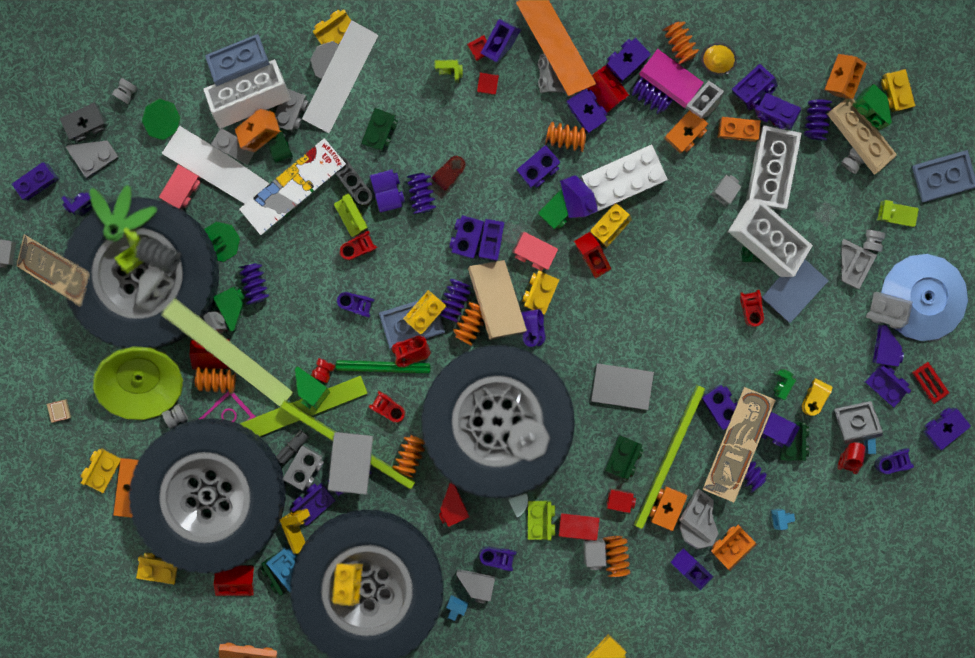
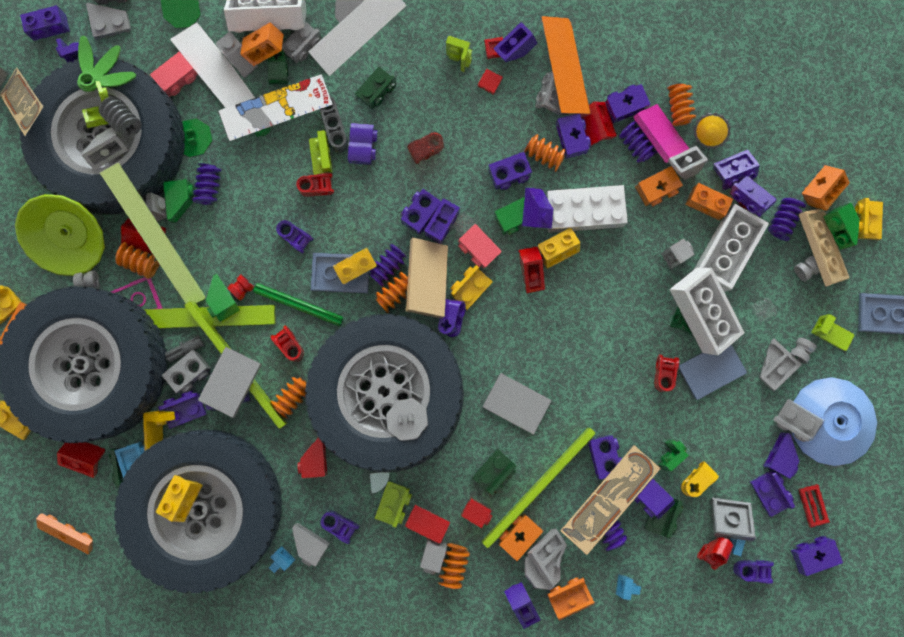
camera: 25 degrees right, 5 degrees down
(412, 350) = (331, 298): red piece -> none
(421, 192) = (392, 156): dark purple piece -> none

